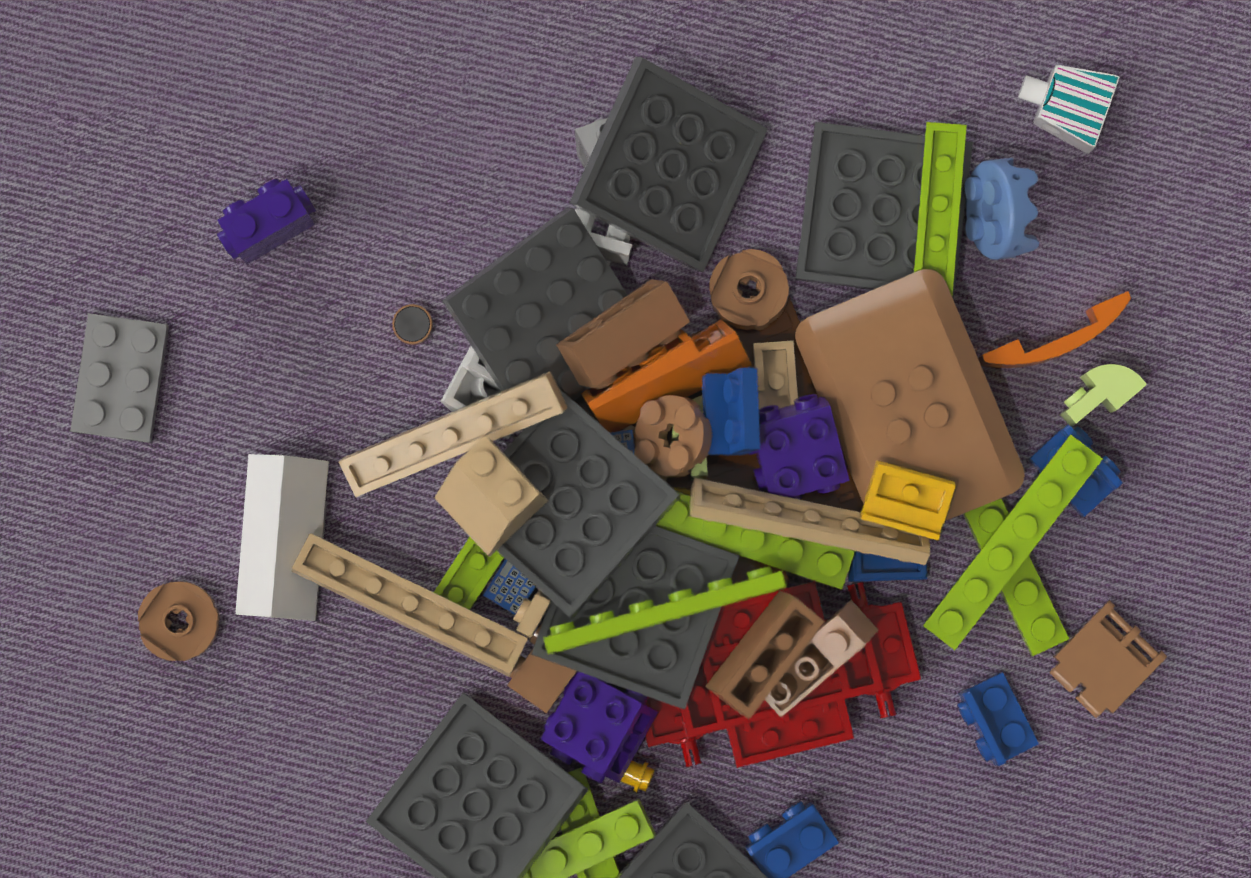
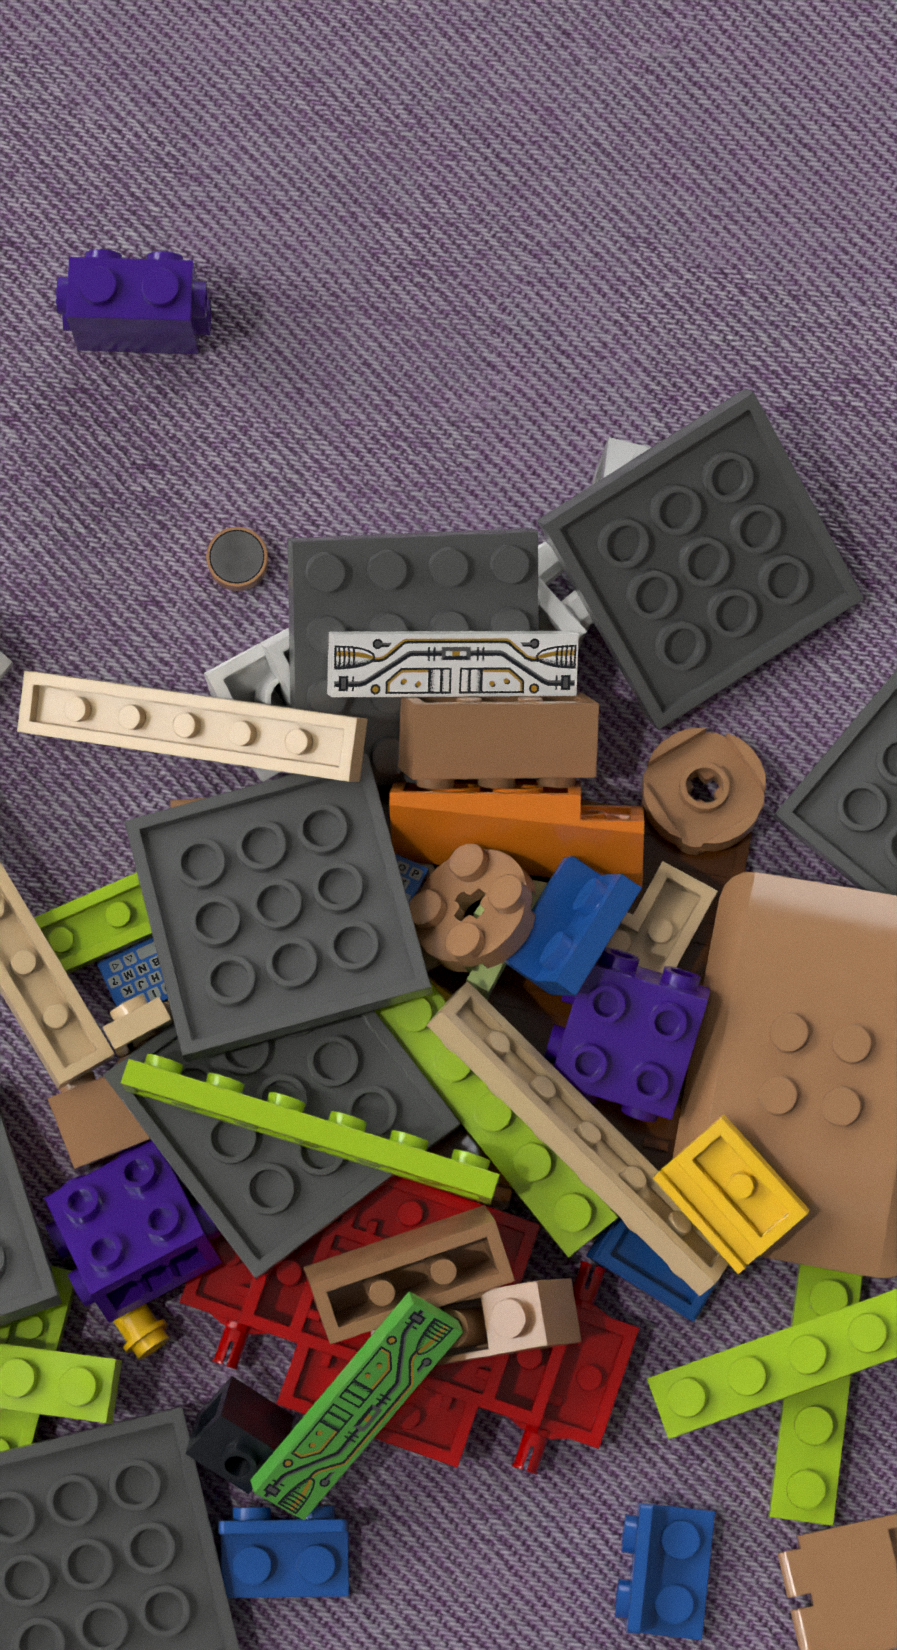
camera: 40 degrees right, 5 degrees down
(489, 495) = (183, 829): tan slope -> none
(573, 310) = (452, 663): none -> white tile
(728, 796) = (238, 1433): none -> black brick
(782, 741) = (356, 1405): none -> bright green tile

